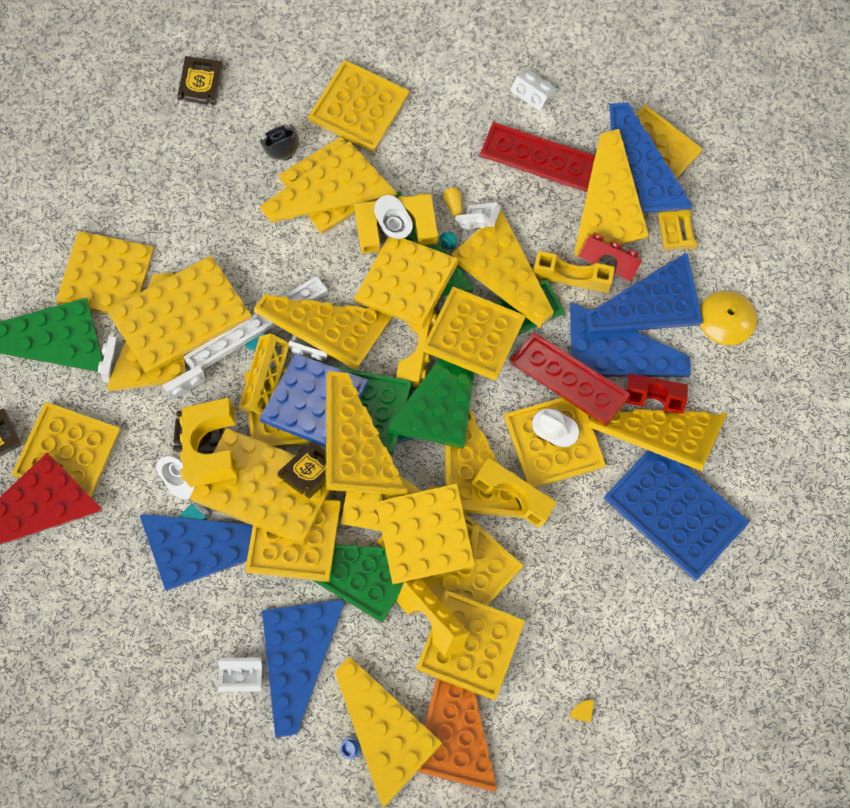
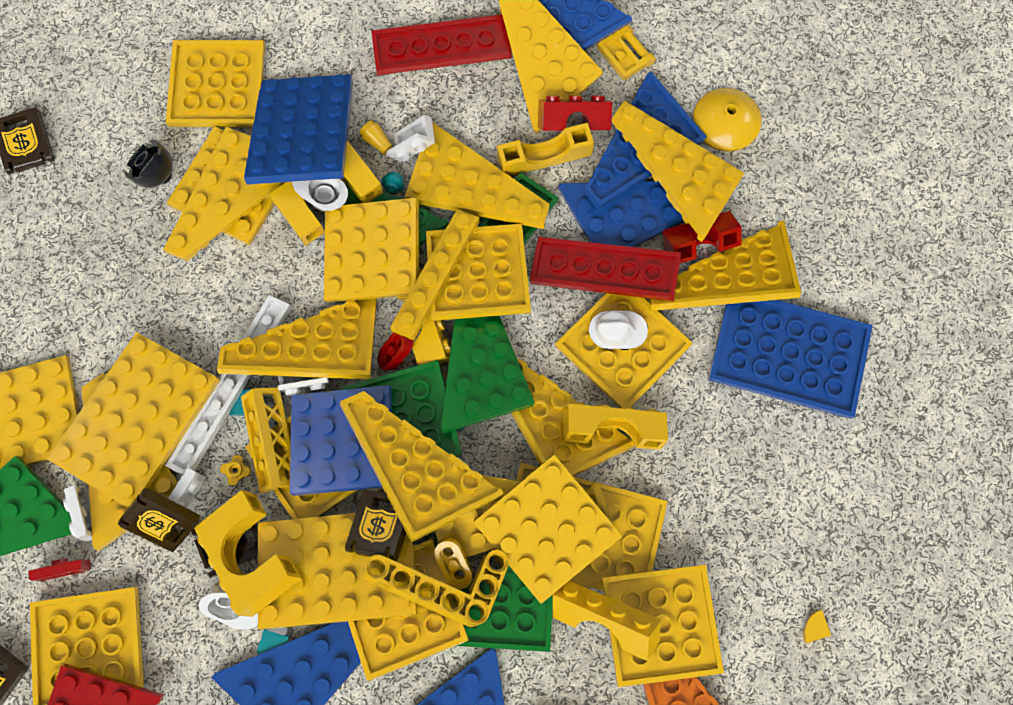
camera: 25 degrees left, 5 degrees up
(76, 390) = (59, 568): none -> red plate
(159, 386) = (156, 518): none -> dark brown container
(233, 389) = (242, 470): none -> yellow plate
(328, 534) = (440, 590): none -> yellow beam
(346, 523) = (454, 561): none -> yellow plate
(385, 359) = (394, 352): none -> red plate
(401, 168) = (300, 130): none -> blue plate
(442, 319) = (434, 274): none -> yellow plate
(670, 341) = (692, 176): none -> yellow wing

